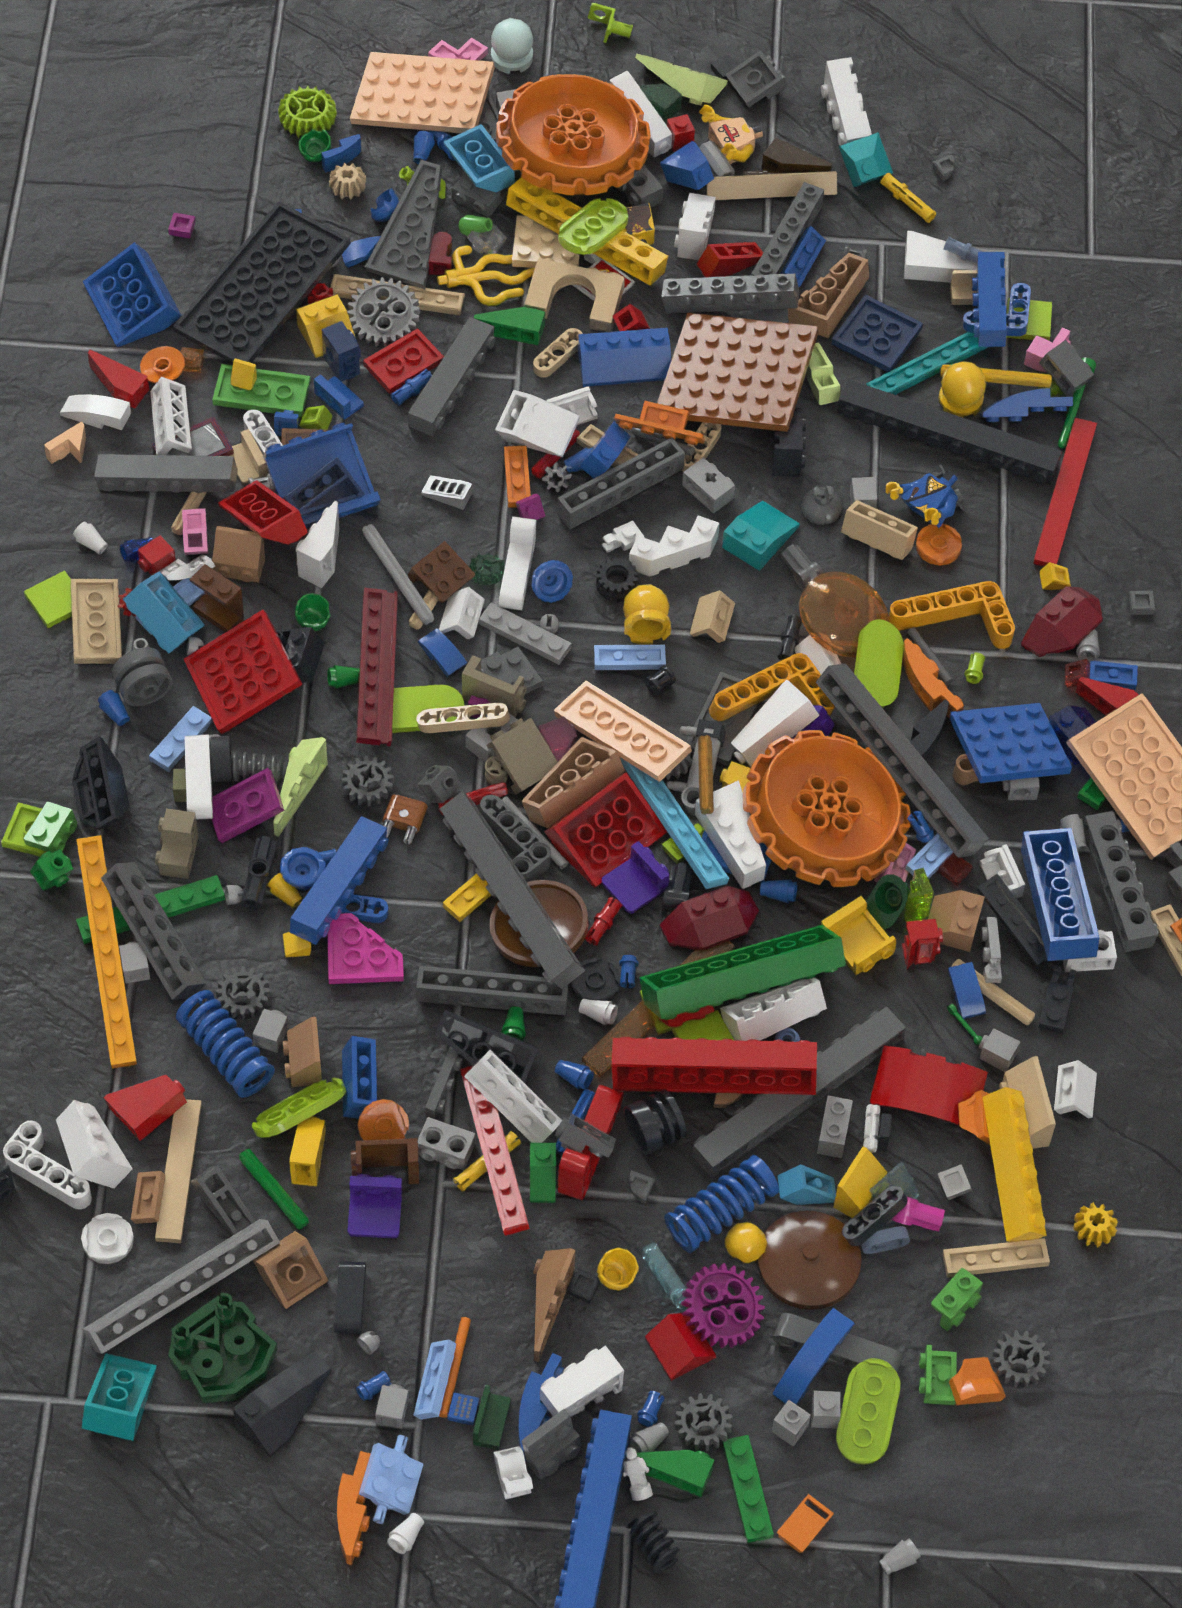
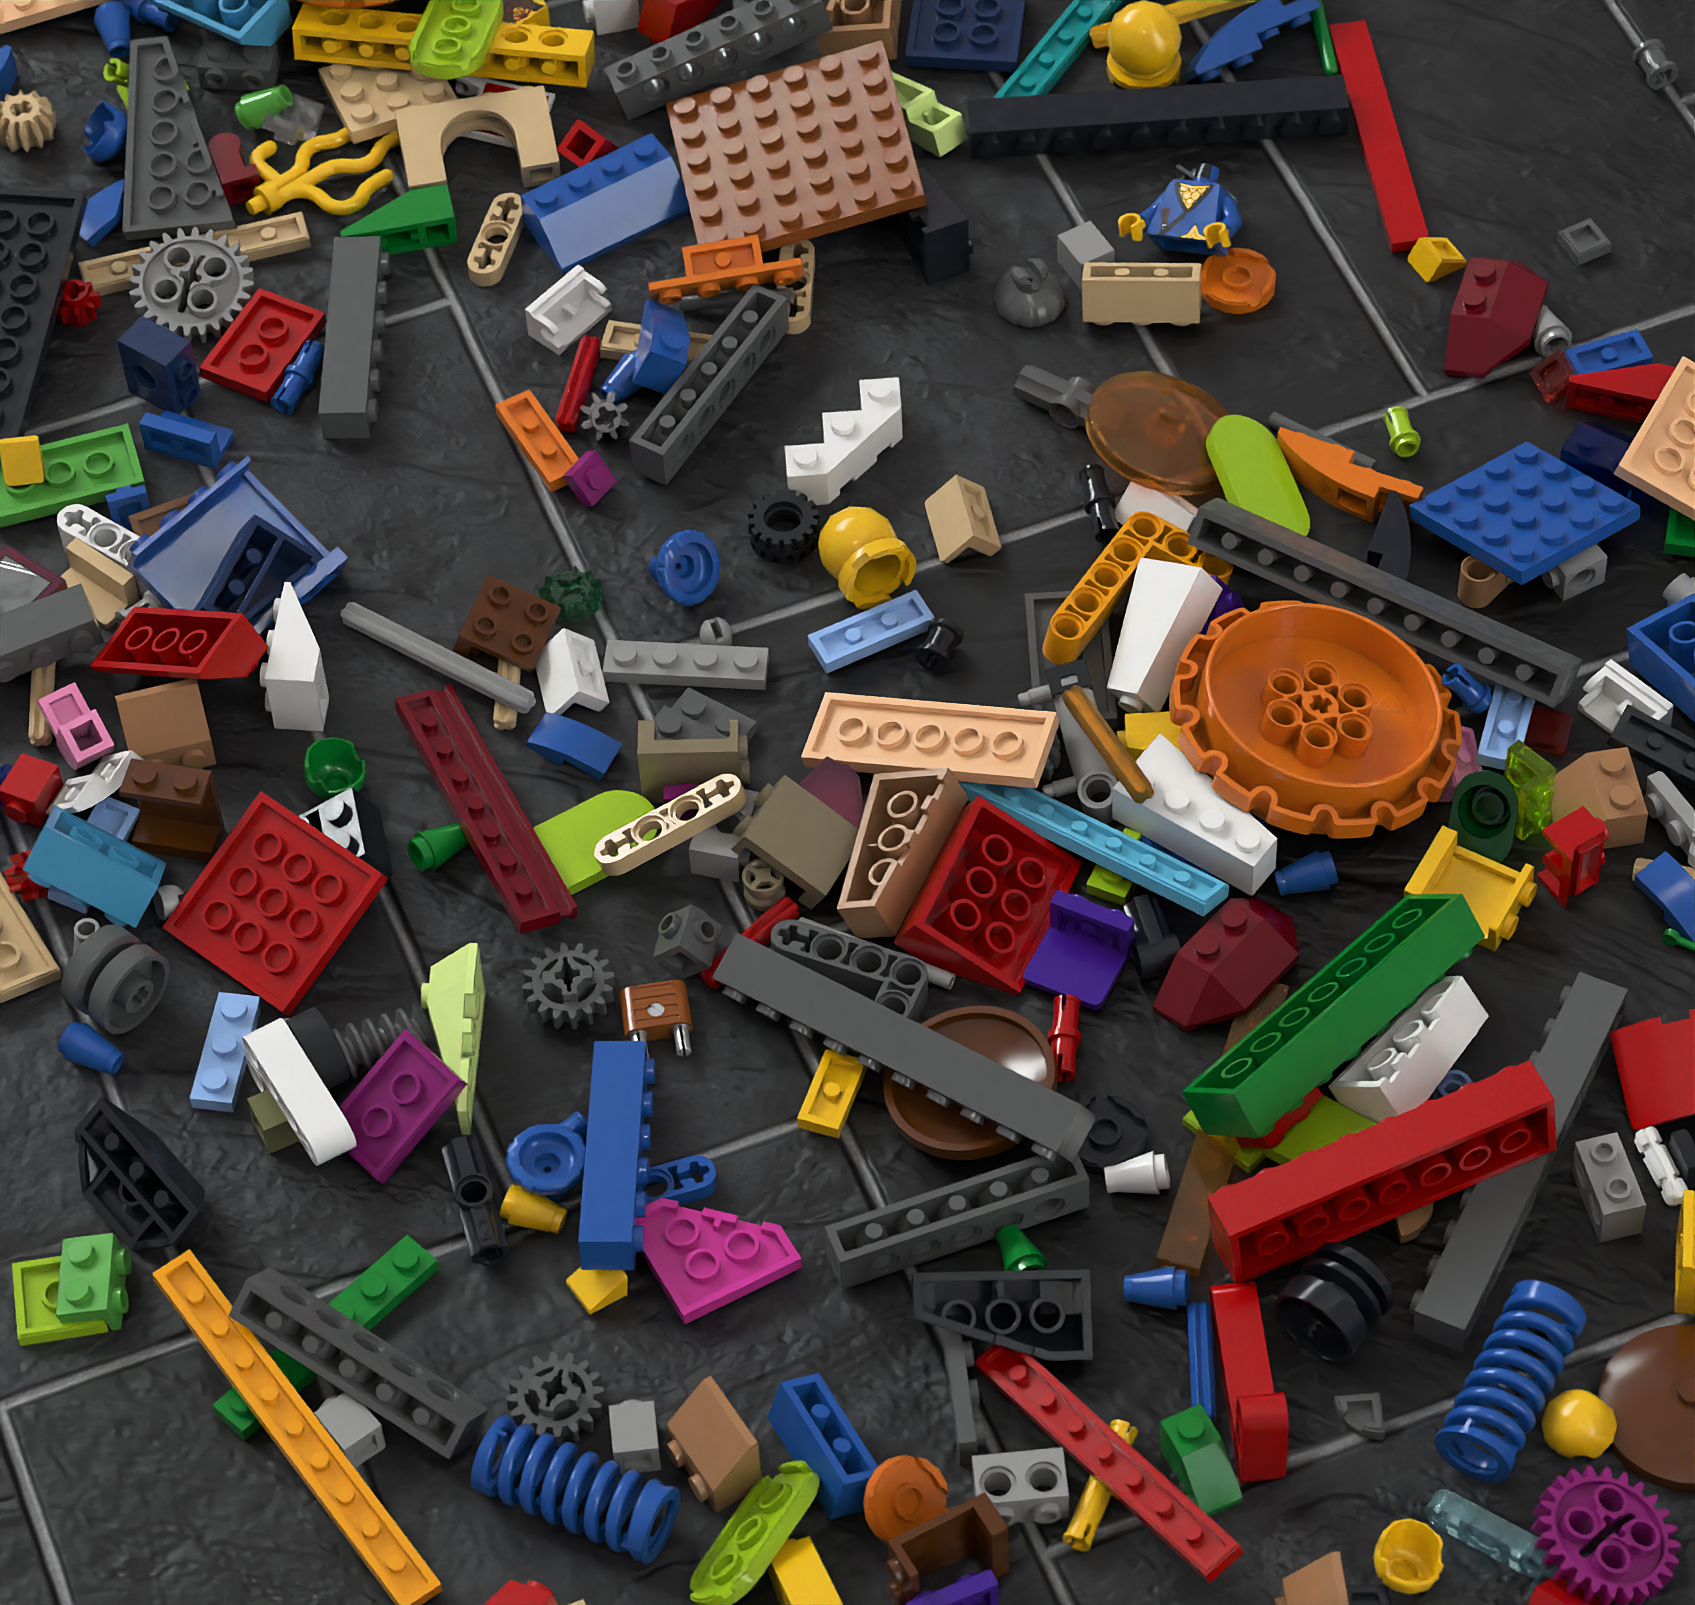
camera: 20 degrees left, 5 degrees down
(52, 869) = (131, 1343): green brick -> none
(179, 843) = (316, 1206): dark tan brick -> none
(231, 894) = (449, 1254): light grey hinge -> none
(316, 418) = (169, 482): lime slope -> none
(319, 315) = (90, 339): yellow slope -> none
(452, 498) = (463, 511): light grey slope -> none
(512, 1099) = (1090, 1367): white fence -> none
(518, 563) = (617, 563): white beam -> none
(537, 424) = (532, 348): white slope -> none
(577, 1133) = (1244, 1372): dark grey plate -> none
(622, 536) = (756, 460): white plate -> none
(628, 970) = (1143, 1085): blue pin -> none
(708, 485) = (843, 334): light grey brick -> none
(758, 534) = (960, 376): teal slope -> none
(806, 1186) = (1620, 1297): dark azure slope -> none
(958, 603) = (1347, 330): light orange beam -> none

